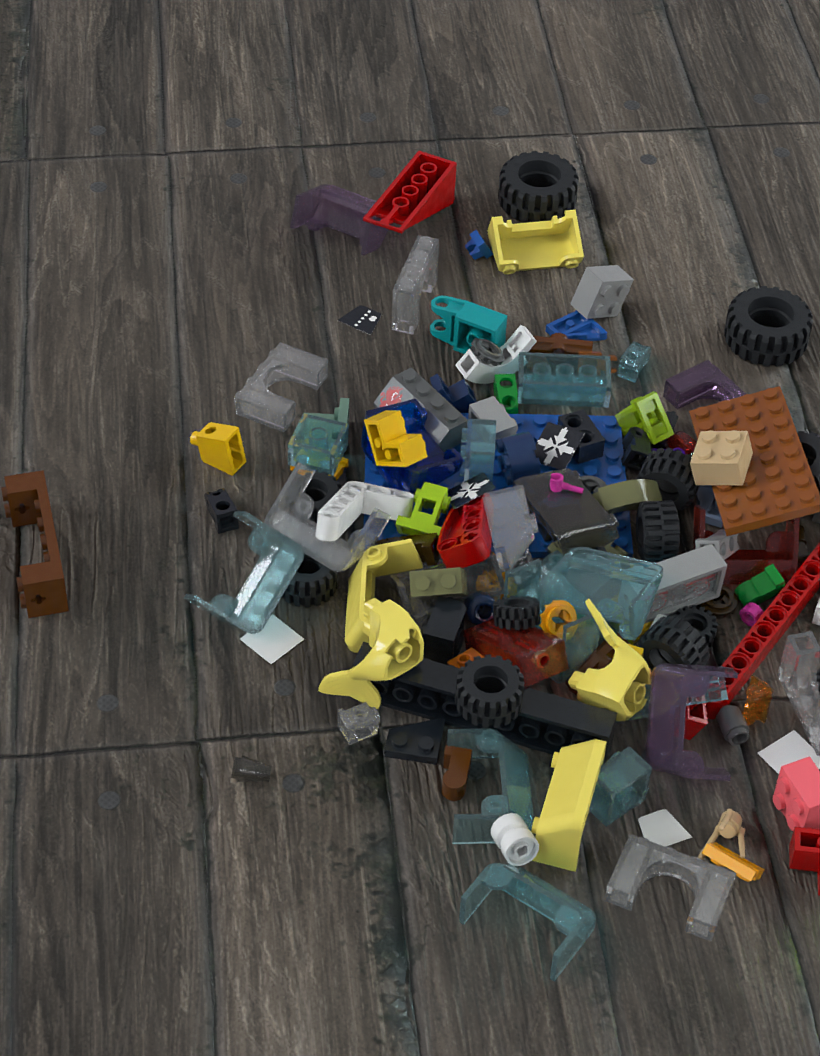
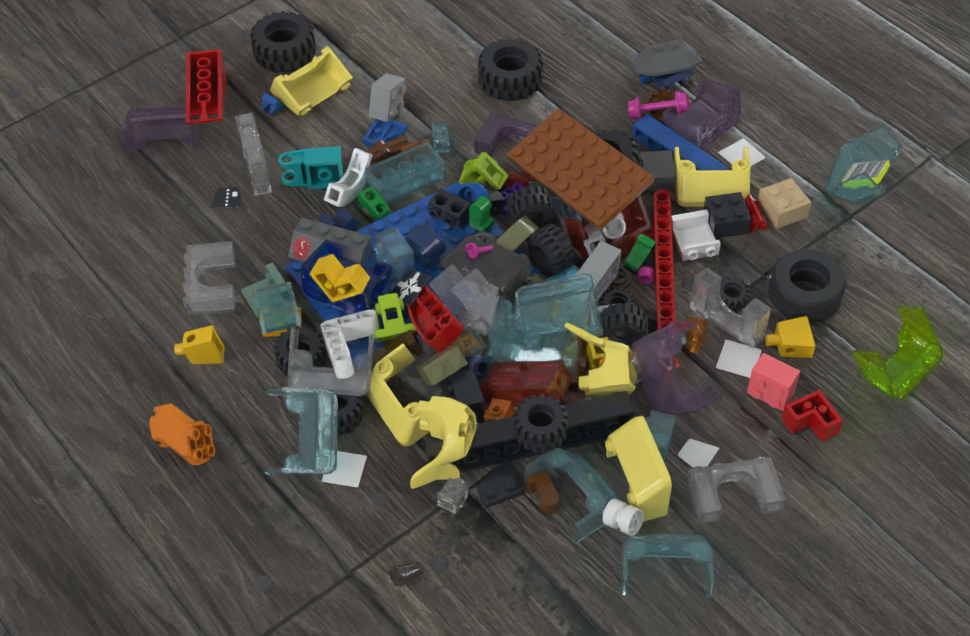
camera: 30 degrees left, 5 degrees up
(44, 581) = (92, 462): reddish brown plate -> none
(134, 518) = (182, 434): none -> orange brick
(221, 510) = (238, 393): black leg -> none
(487, 351) = (343, 179): dark grey gear -> none
(492, 410) = (379, 222): light grey brick -> none
(516, 612) = (510, 357): black tyre -> none
(557, 445) = (442, 221): black sticker -> none
(559, 609) = (540, 339): light orange gear -> none
(607, 458) = (480, 215): none -> green leg
(615, 432) = (470, 192): none -> blue piece
(721, 458) = (562, 177): tan brick -> none
(725, 857) = (751, 450): light orange plate -> none
(729, 827) = (740, 428): tan plant -> none
(733, 725) = (691, 357): dark grey brick -> none
(753, 542) = (615, 228): none -> white wheel

